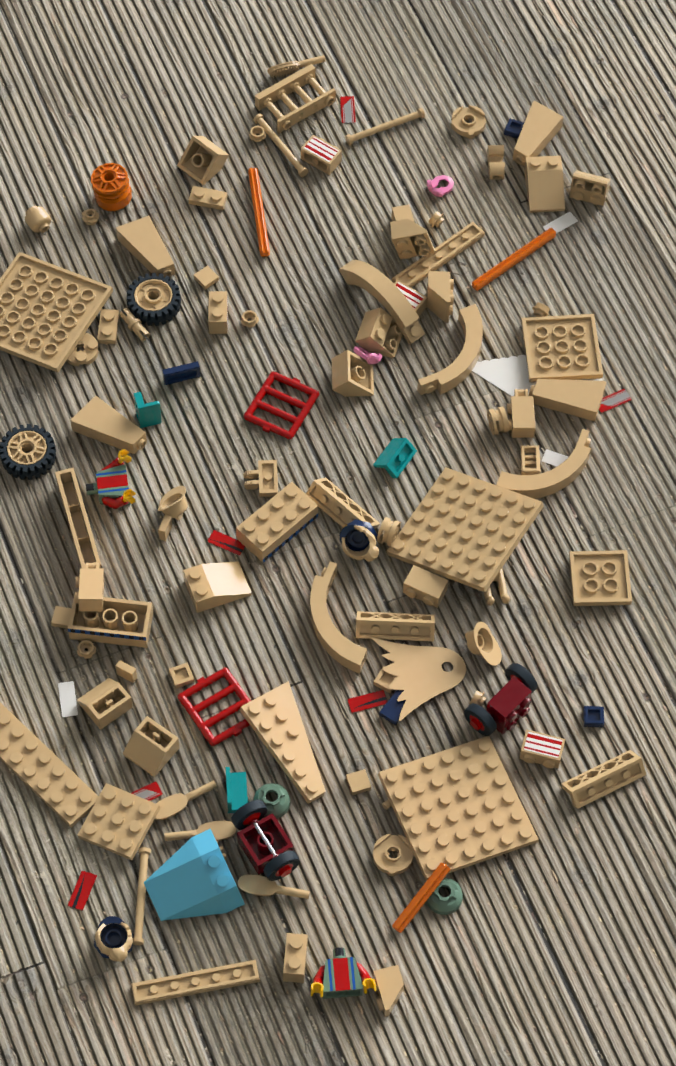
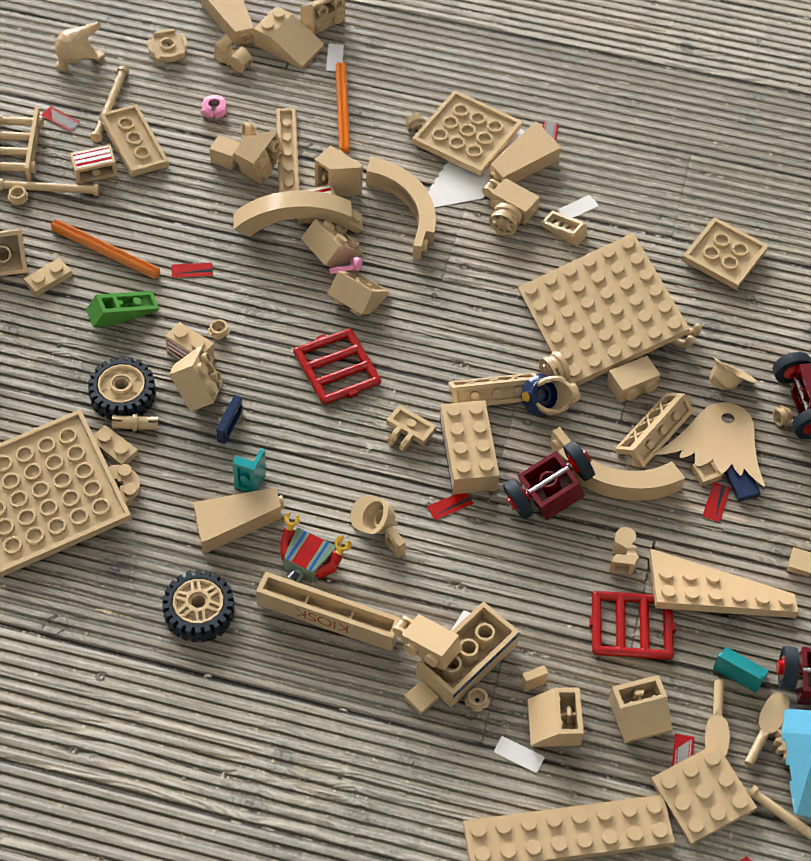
camera: 55 degrees left, 5 degrees down
(146, 246) = (56, 355): tan slope -> none
(181, 675) = (572, 635): tan tile -> none
(191, 332) = (196, 379): none -> tan slope
(206, 277) = (136, 334): tan tile -> none
(215, 584) = (494, 543): tan slope -> none
(217, 254) = (120, 307): none -> bright green slope
(278, 807) = (762, 651): sand green piece -> none
(279, 663) = (626, 555): none -> tan leg
(281, 585) = (550, 483): none -> dark red brick
(288, 271) = (191, 270): none -> red sticker
(364, 162) = (134, 140): none -> tan tile
(396, 456) = (472, 315): teal panel -> none
(406, 70) = (74, 45): none -> tan piece
(513, 128) = (207, 23): dark blue tile -> none
(554, 480) = (598, 203): tan arch -> none

